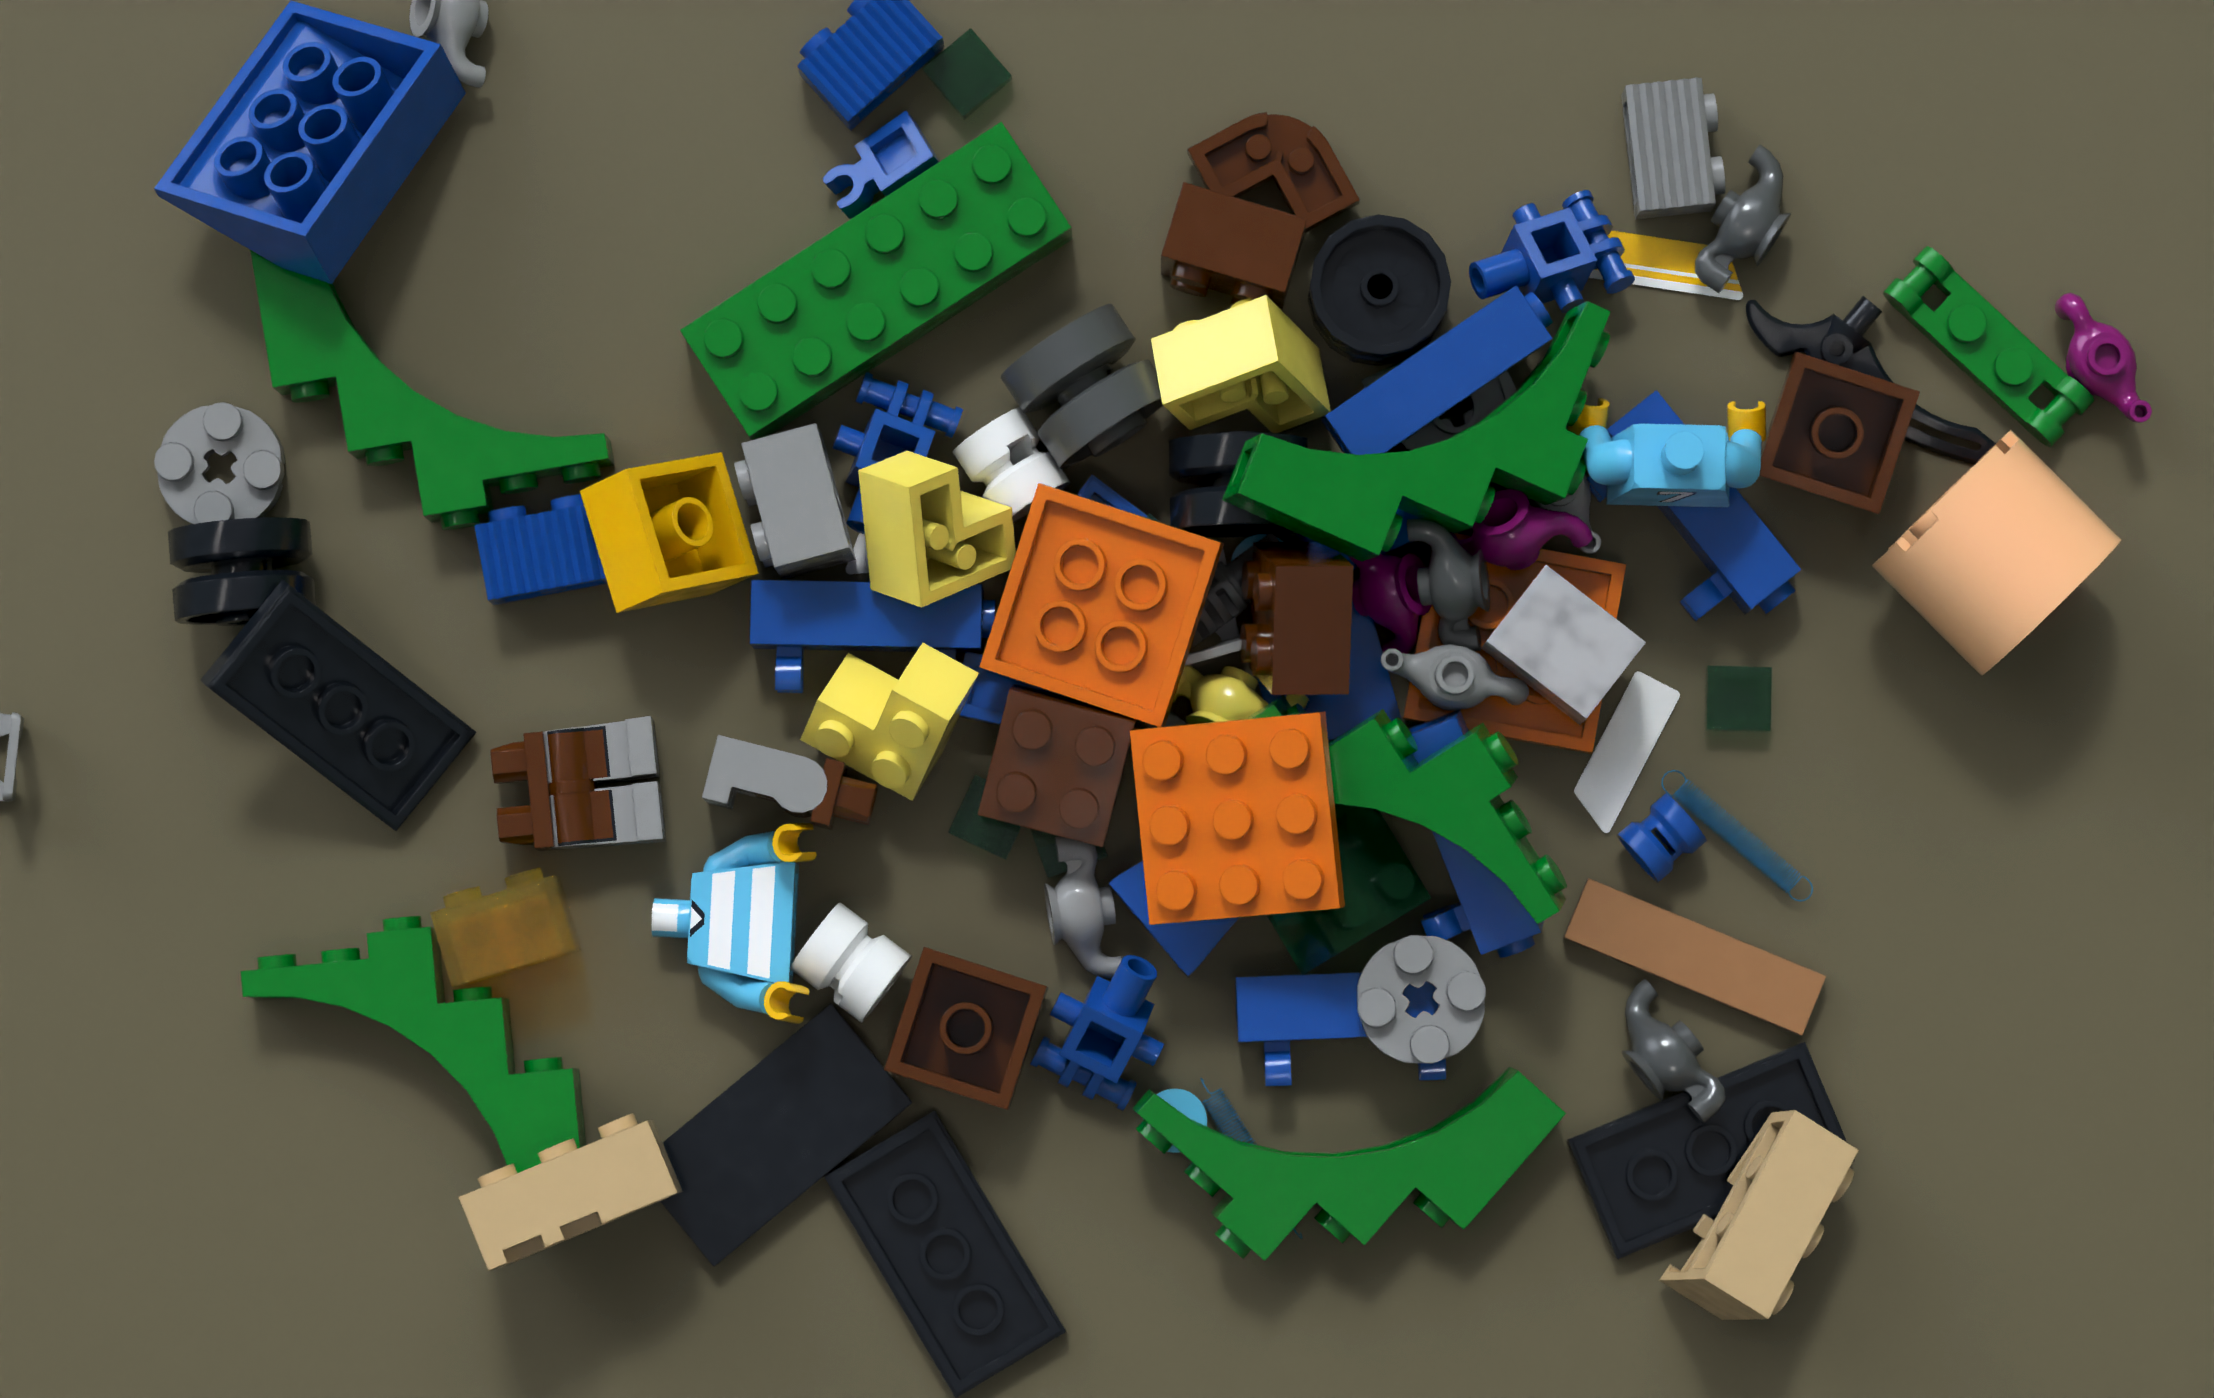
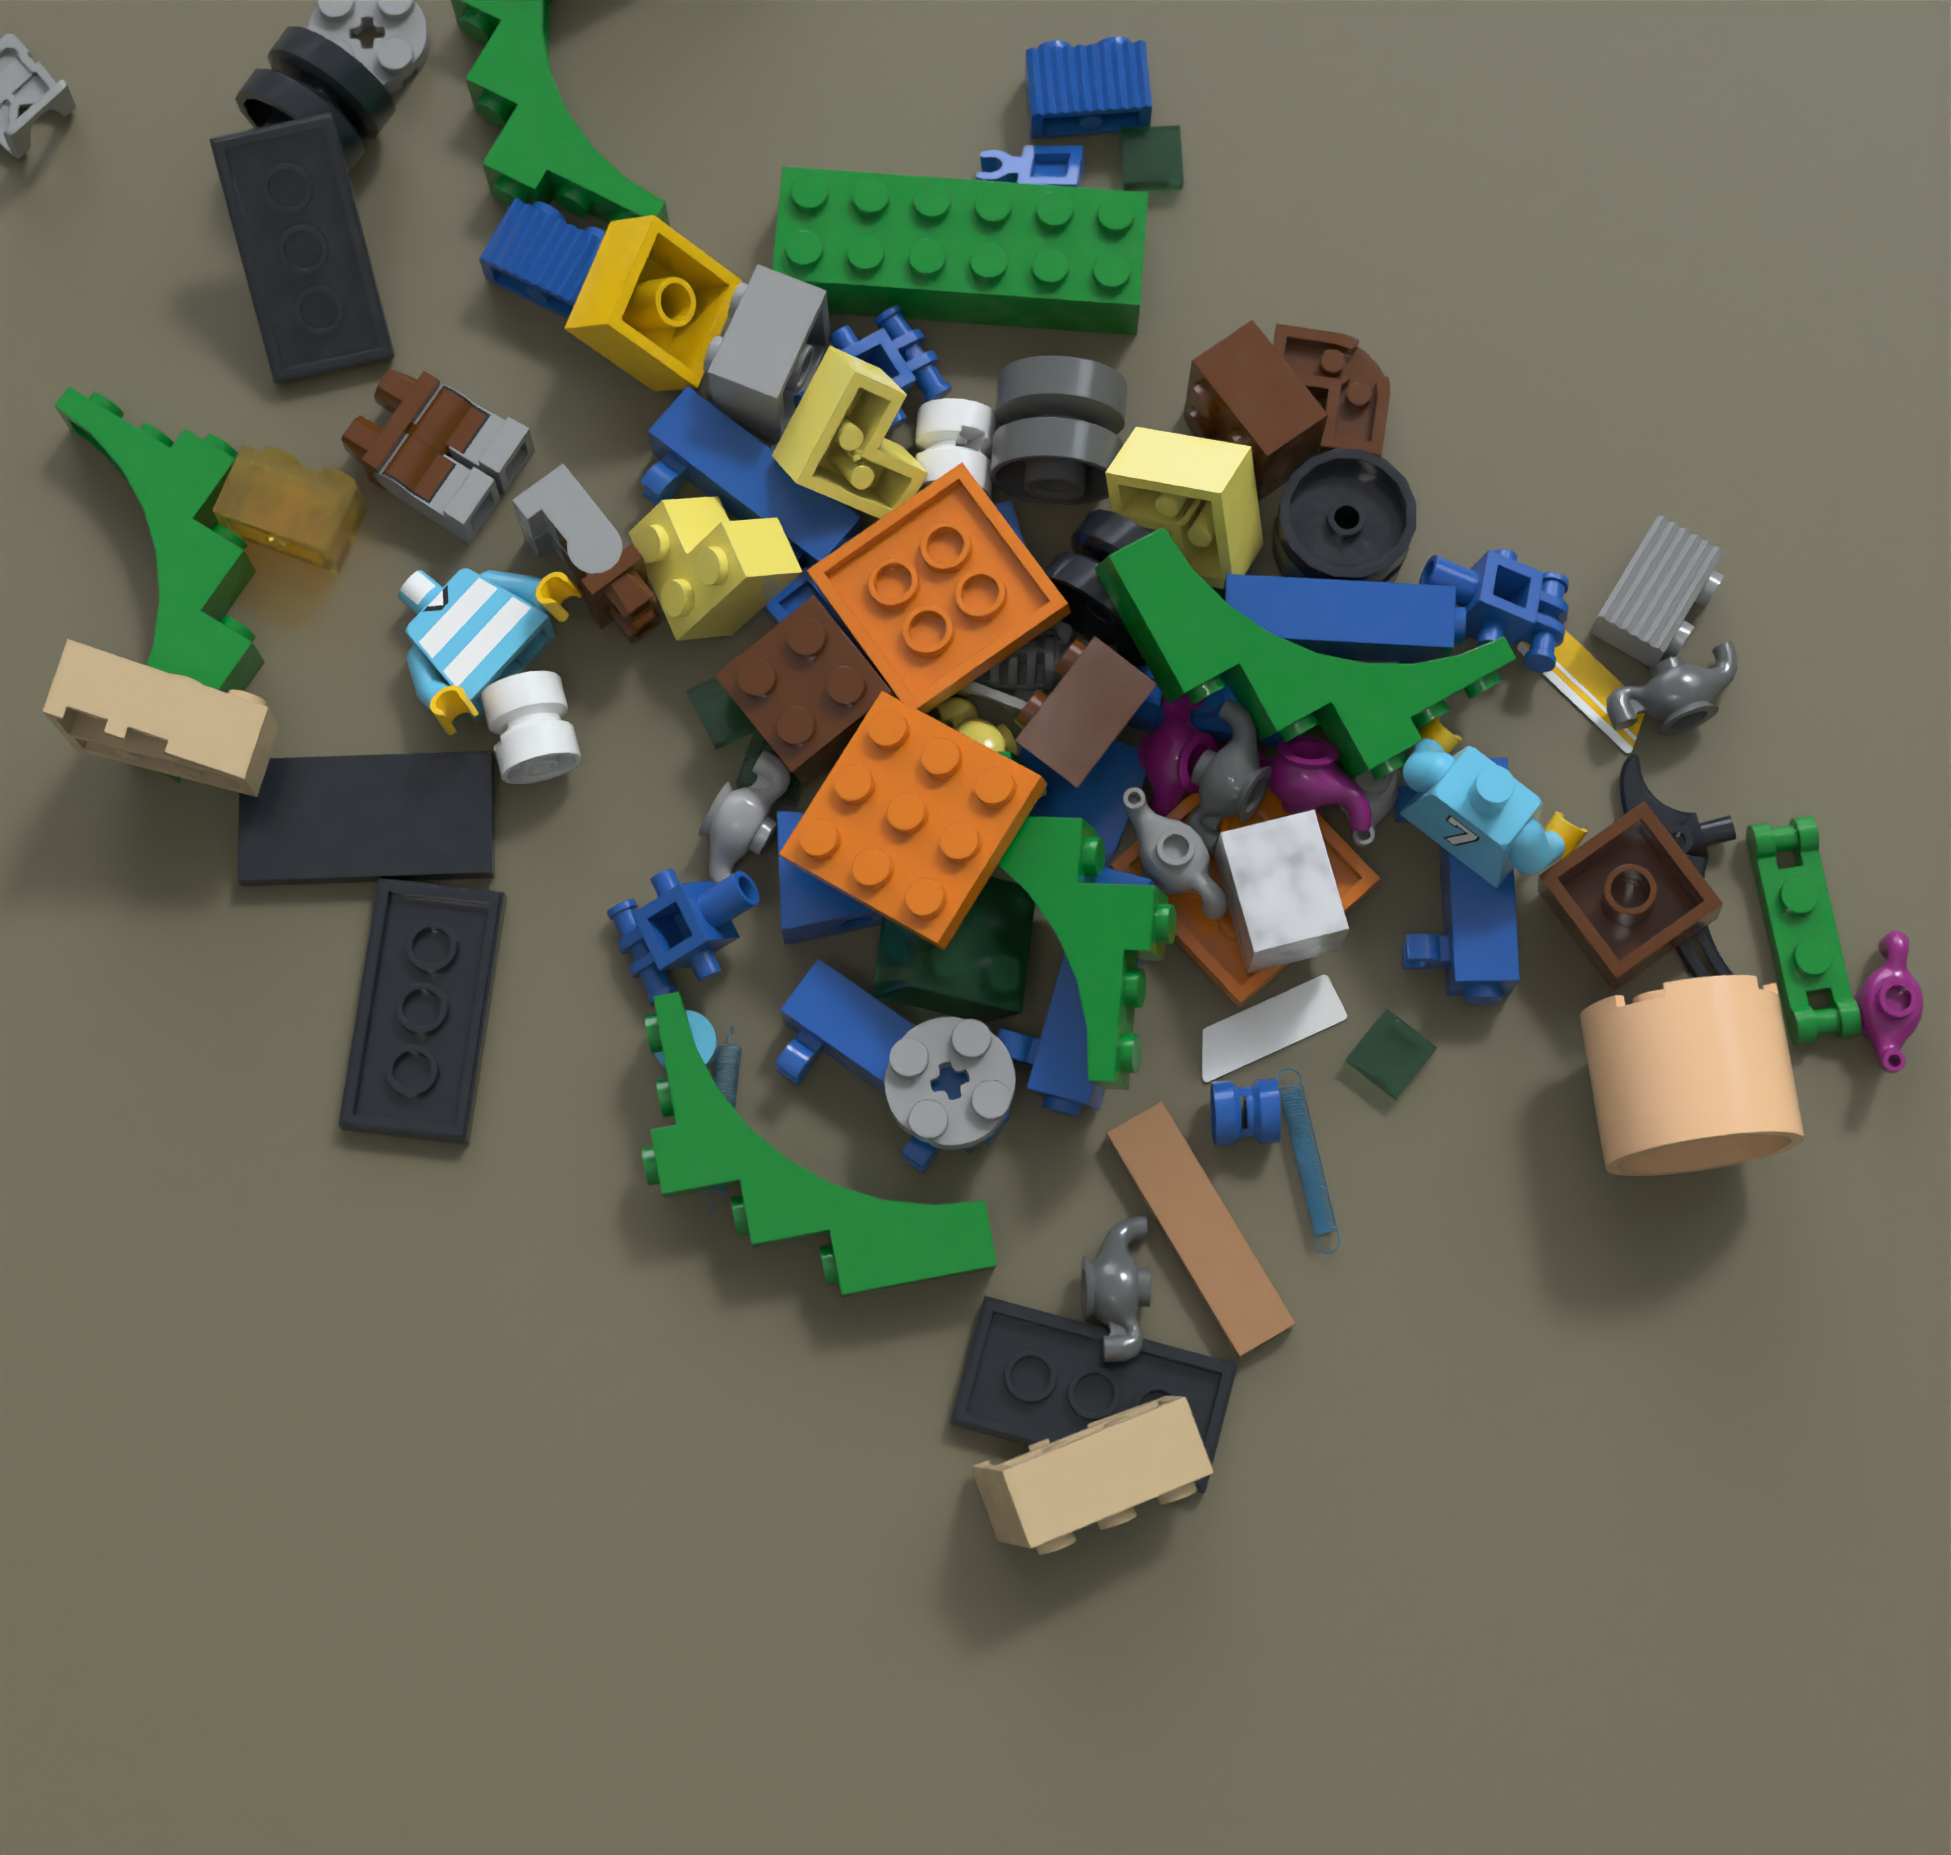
camera: 30 degrees right, 10 degrees down
(966, 1028) = (577, 841): reddish brown brick -> none

